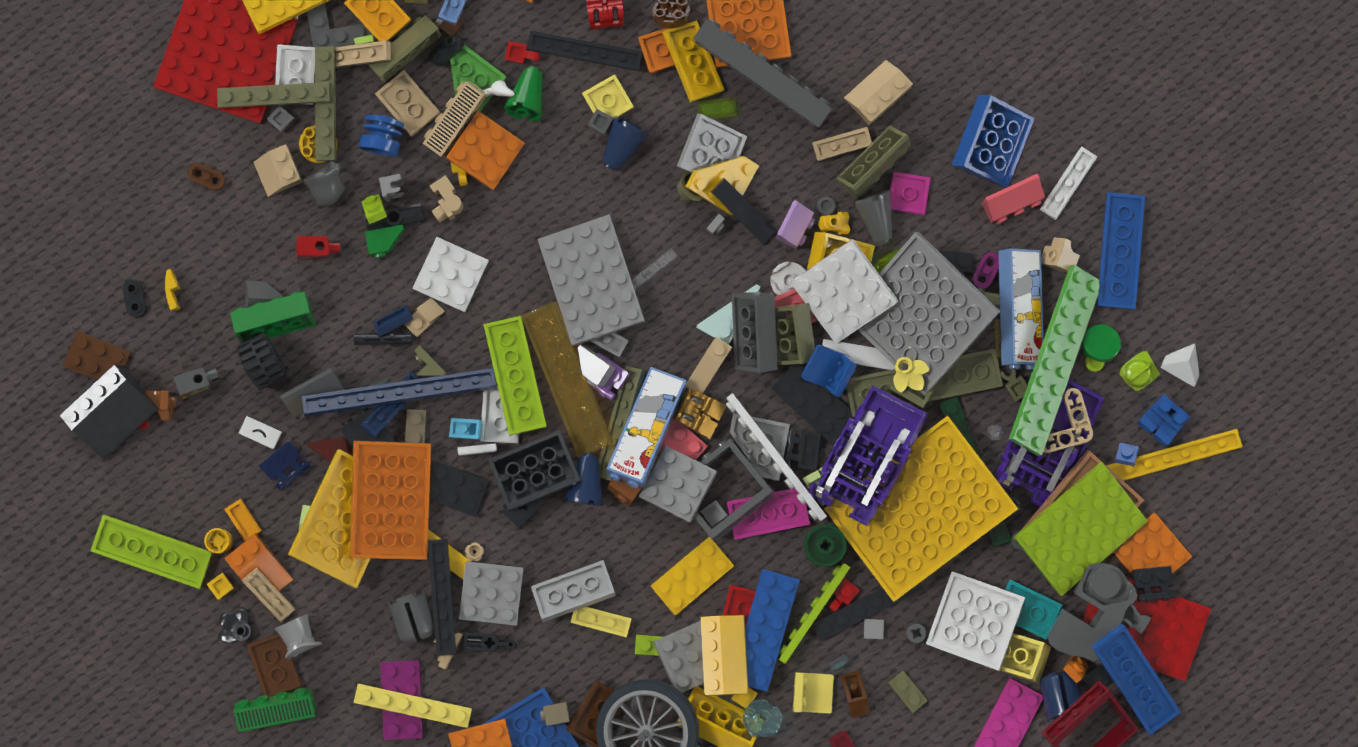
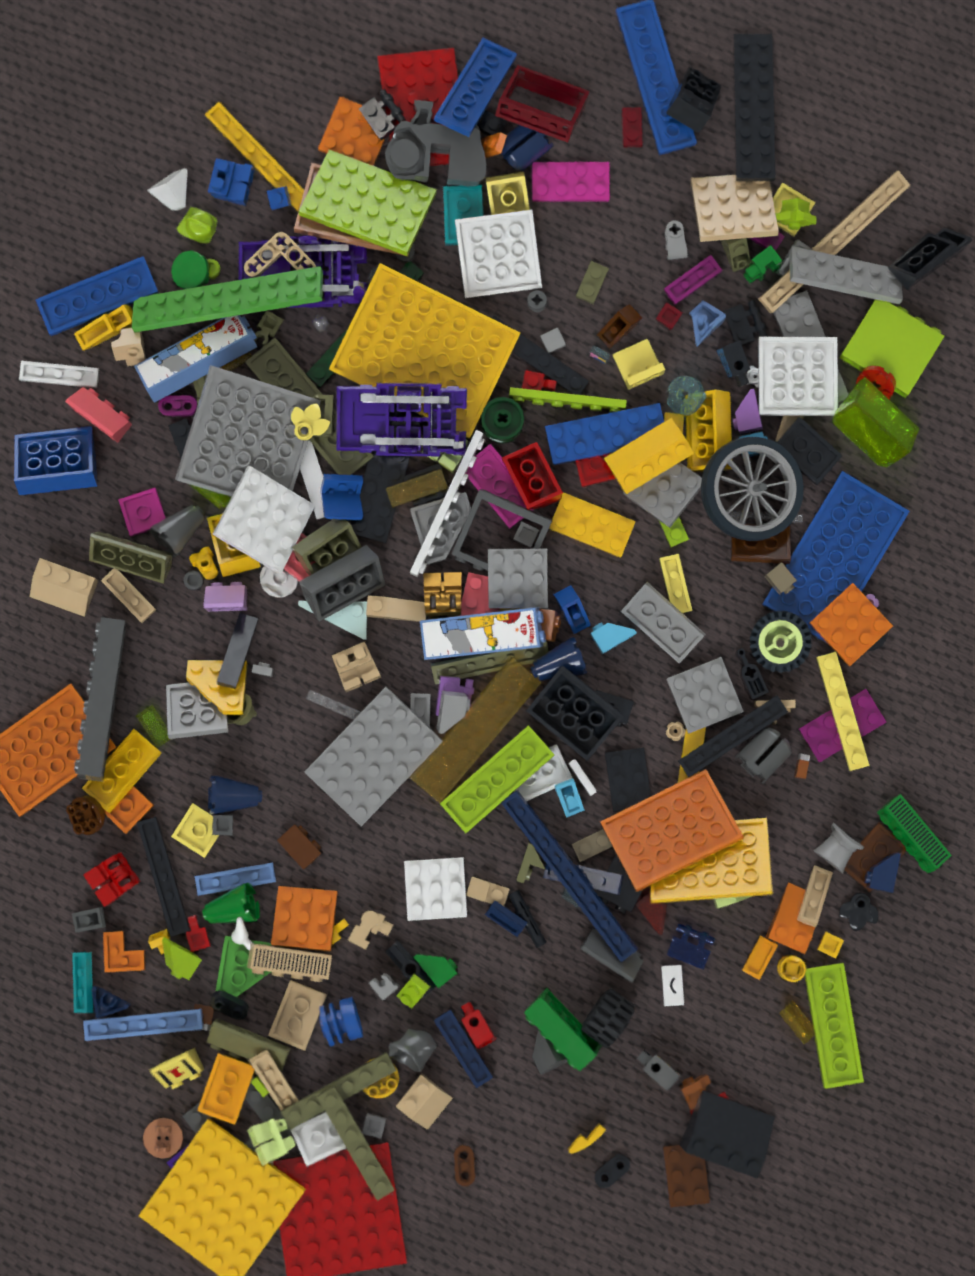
camera: 120 degrees left, 0 degrees up
(171, 522) = (797, 1021): none -> clear yellow plate
(255, 664) = (883, 874): none -> dark blue slope
(303, 226) = (463, 1048): none -> dark blue plate
(306, 26) = (270, 1132): none -> yellowish green hips
(384, 644) = (802, 766): none -> dark orange piece
(502, 684) = (780, 641): none -> wheel
(506, 28) = (179, 959): none -> lime slope
(532, 20) = (155, 940): none -> yellow tile
(548, 178) = (300, 846): none -> reddish brown brick
(550, 110) = (233, 878): none -> medium blue tile
(586, 539) = (610, 635): none -> medium azure slope
(627, 518) = (572, 609): none -> blue slope
(677, 307) = (354, 665): none -> tan hips
(759, 543) = (533, 477): none -> red slope
(803, 438) = (416, 488): none -> clear yellow plate
(1088, 243) = (105, 327): none -> yellow slope

